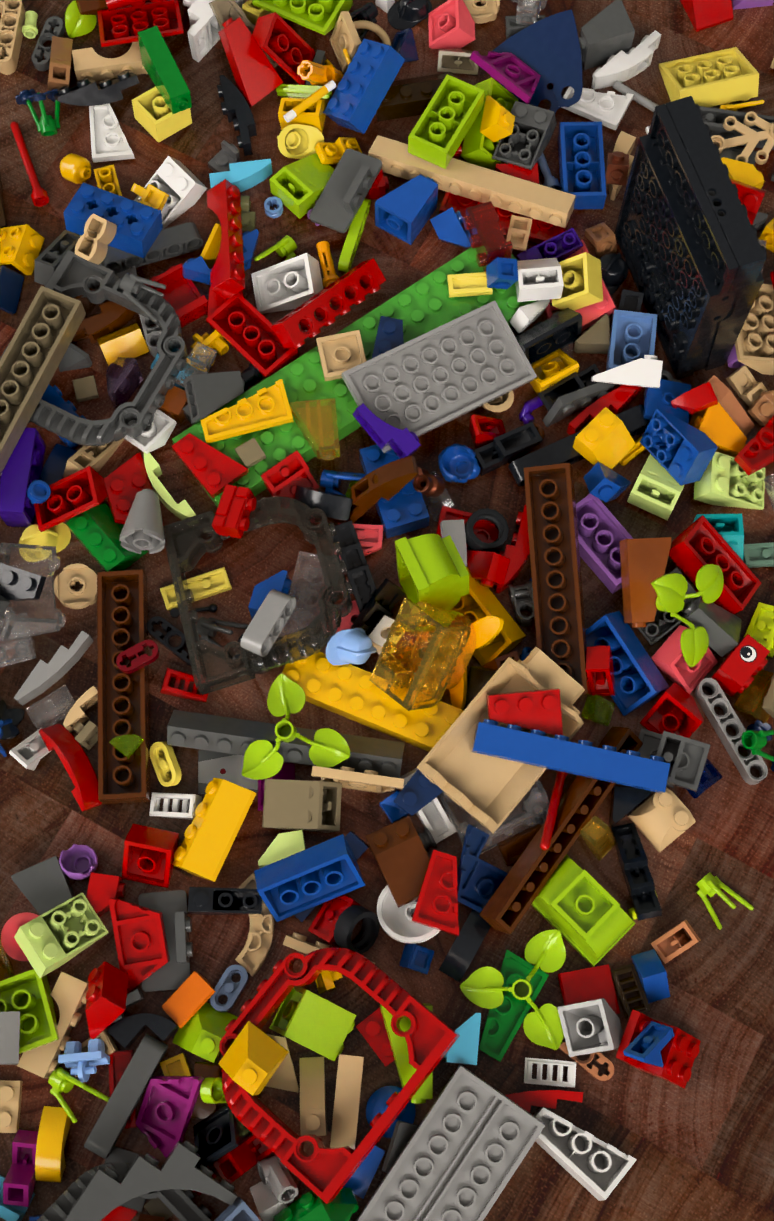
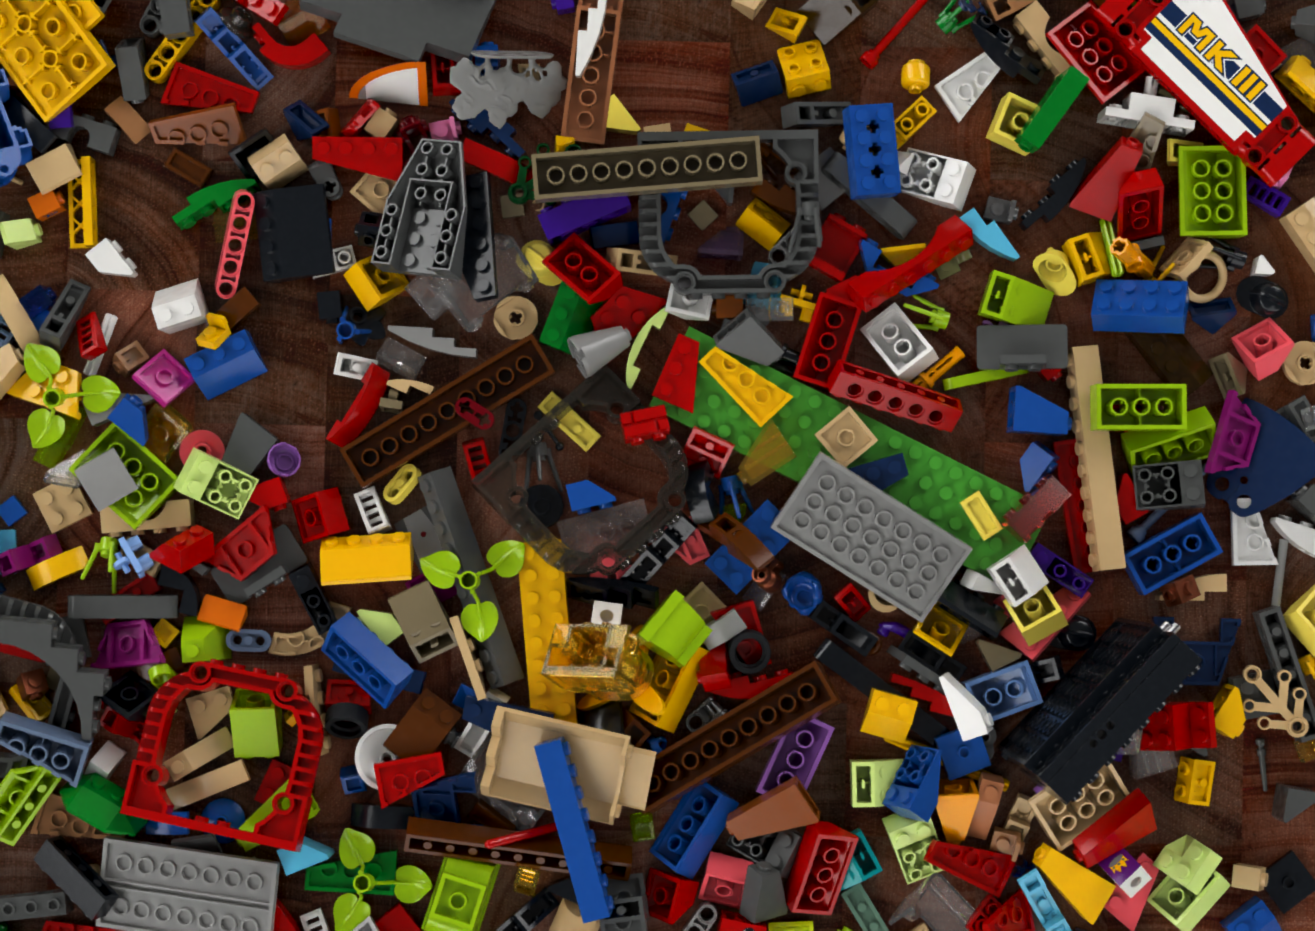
camera: 65 degrees right, 15 degrees up
(38, 492) = (574, 241): blue tile -> none
(95, 240) = (833, 155): tan brick -> none
(126, 744) = (396, 446): clear neon green tile -> none
(151, 196) = (919, 169): yellow plate -> none
(250, 453) = (709, 406): dark tan tile -> none
(252, 1059) = (196, 696): yellow slope -> none
(268, 622) = (554, 514): light grey beam -> none
(270, 202) = (981, 288): medium blue bush -> none
(278, 1178) = (121, 764): light grey piece -> none
(309, 101) = (1096, 264): yellow bar -> none
(332, 152) = (1067, 312): yellow slope -> none
(349, 647) = (577, 592): light blue piece -> none
(402, 442) = (784, 539): dark purple slope -> none
(496, 120) = (1170, 452): yellow slope -> none
(502, 273) = (1000, 543): blue brick -> none
(519, 232) = (1062, 532): tan slope -> none
(528, 709) = (595, 774): red wing -> none
(600, 670) = (674, 813): red slope -> none
(602, 238) = (1103, 609): medium nougat bracket -> none
(605, 483) = (849, 734): blue slope -> none
(670, 598) = (757, 849): lime plant -> none
(696, 399) = (970, 780): red slope -> none

